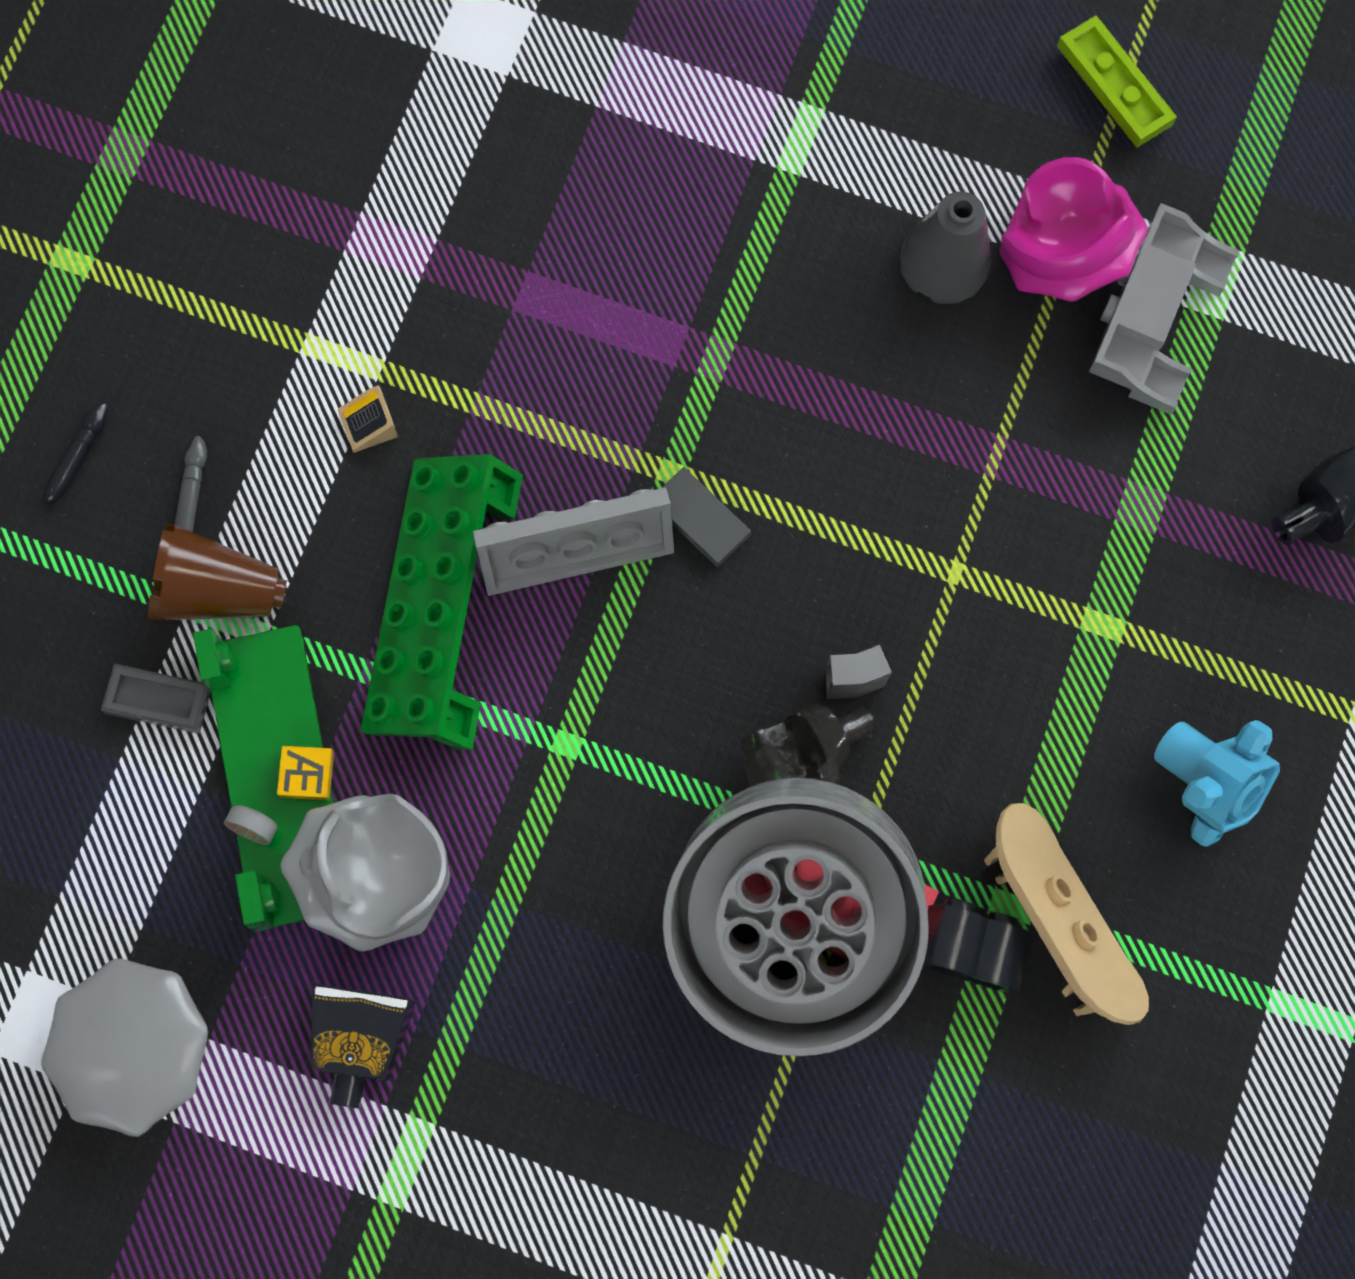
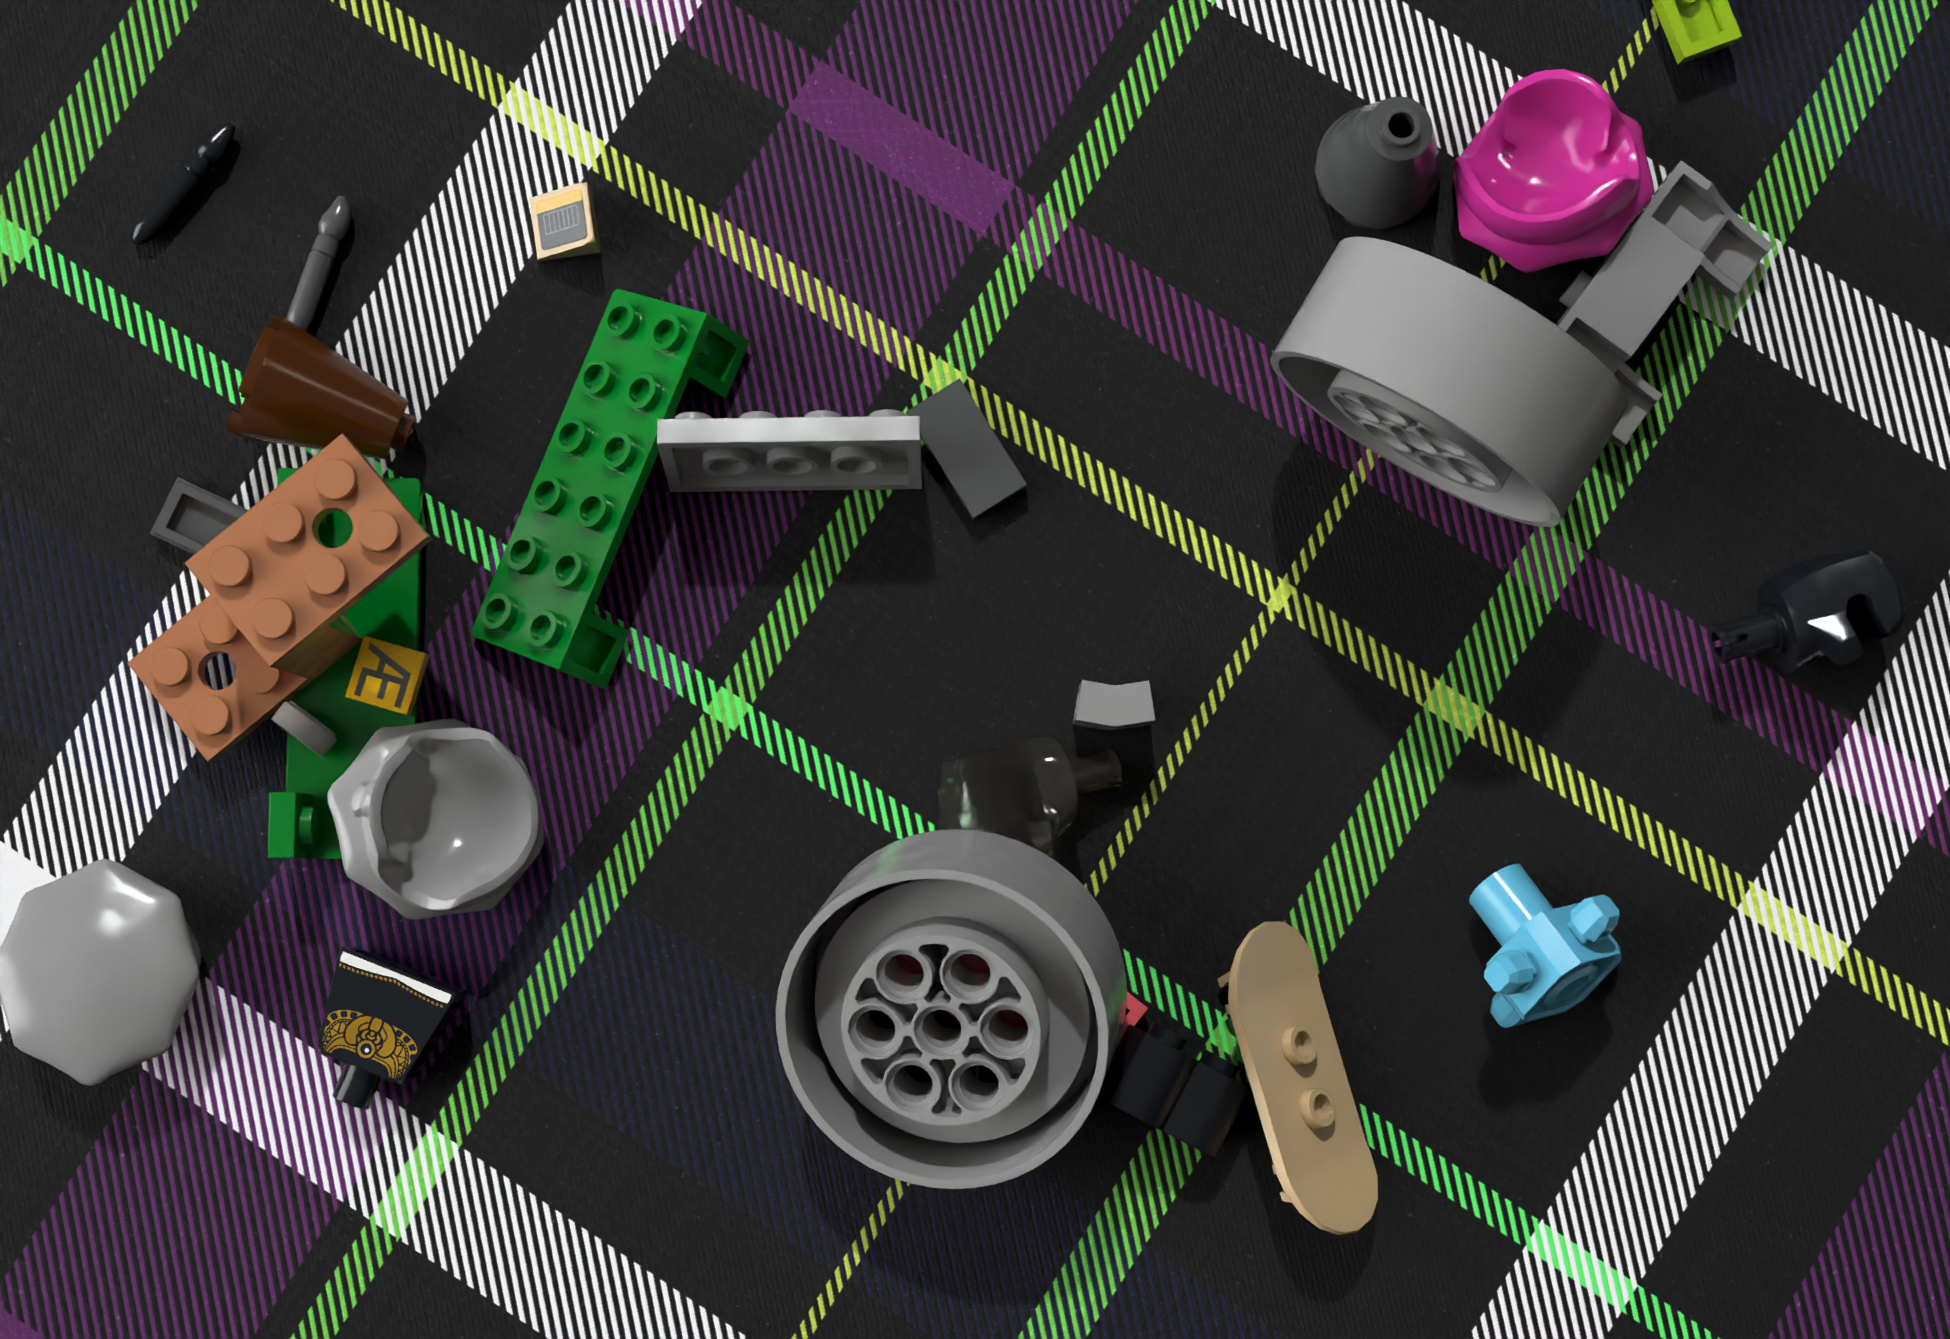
camera: 15 degrees right, 10 degrees up
(214, 724) = (278, 597): none -> nougat bracket
(1045, 375) = (1450, 380): none -> light grey wheel

